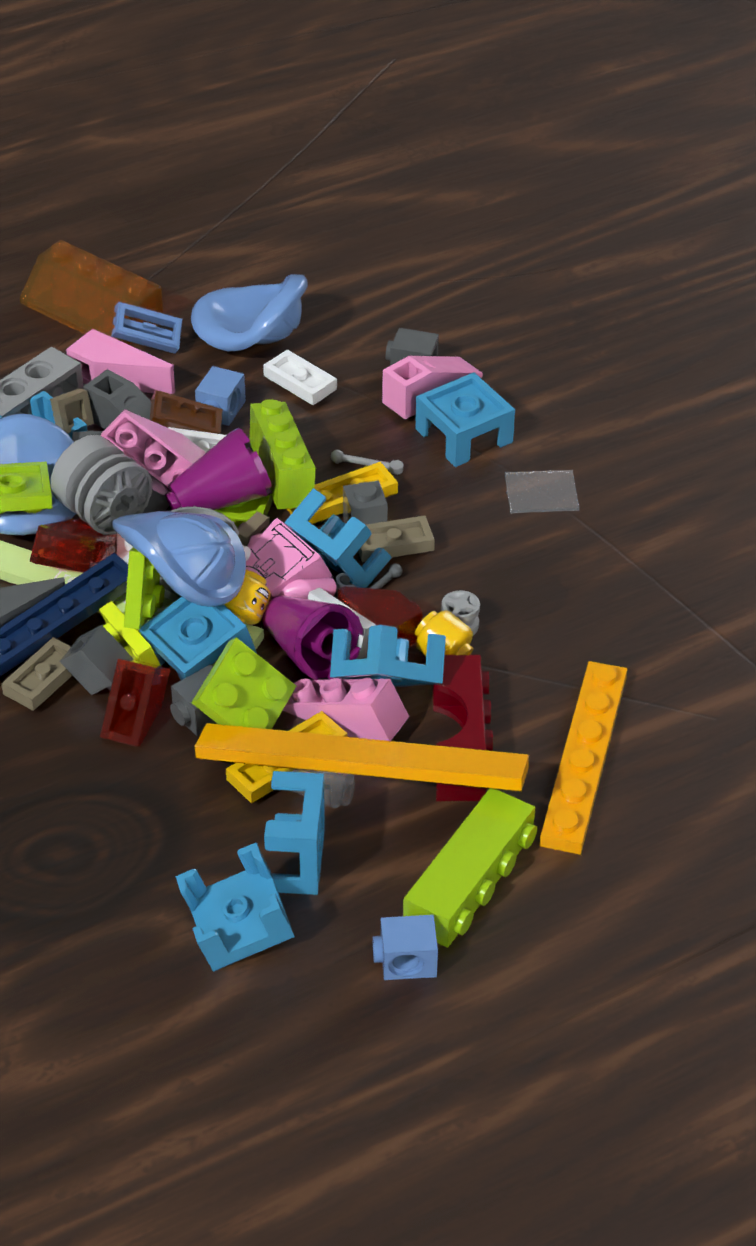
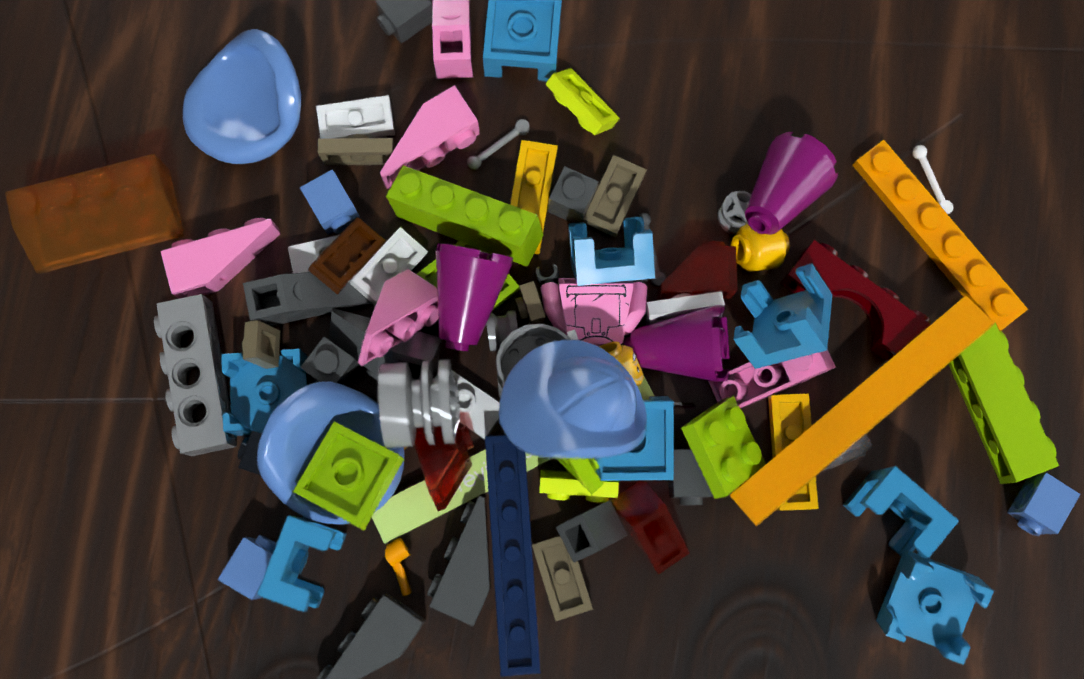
camera: 55 degrees left, 35 degrees up
(147, 333) = (172, 220): medium blue tile -> none
(274, 385) = (355, 150): none -> dark tan plate
(335, 416) = (435, 131): none -> bright pink slope
(451, 479) = (582, 101): none -> neon yellow plate
(505, 608) = (789, 181): none -> magenta cone
(541, 491) = (636, 41): clear window -> none
(617, 746) = (920, 153): none -> white hinge

